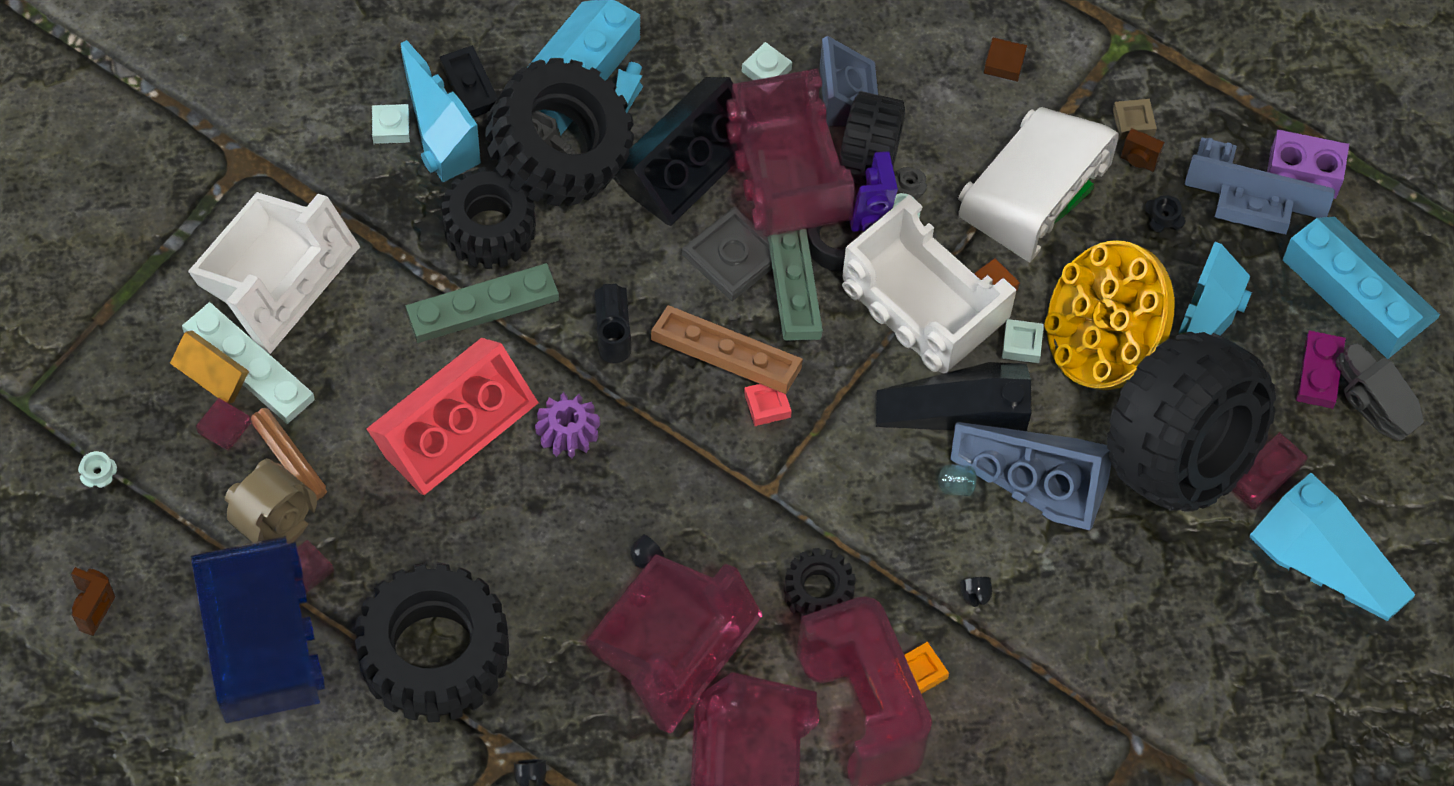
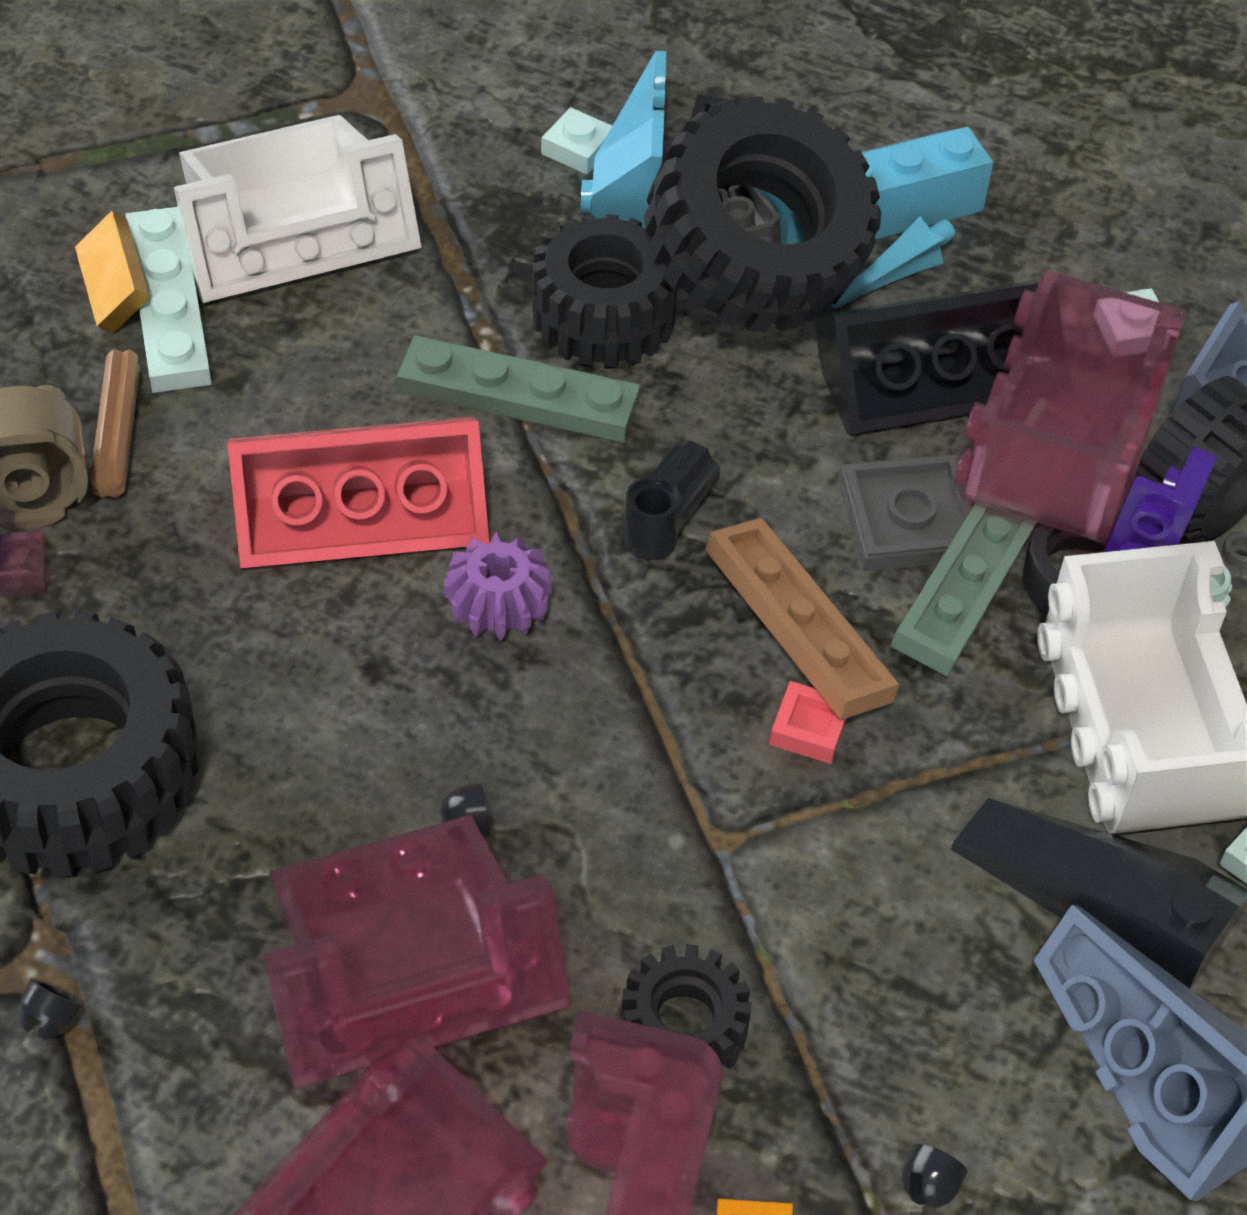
camera: 35 degrees right, 10 degrees down
(223, 424) = (72, 345): clear pink tile -> none
(957, 480) = (1014, 987): clear light blue piece -> none

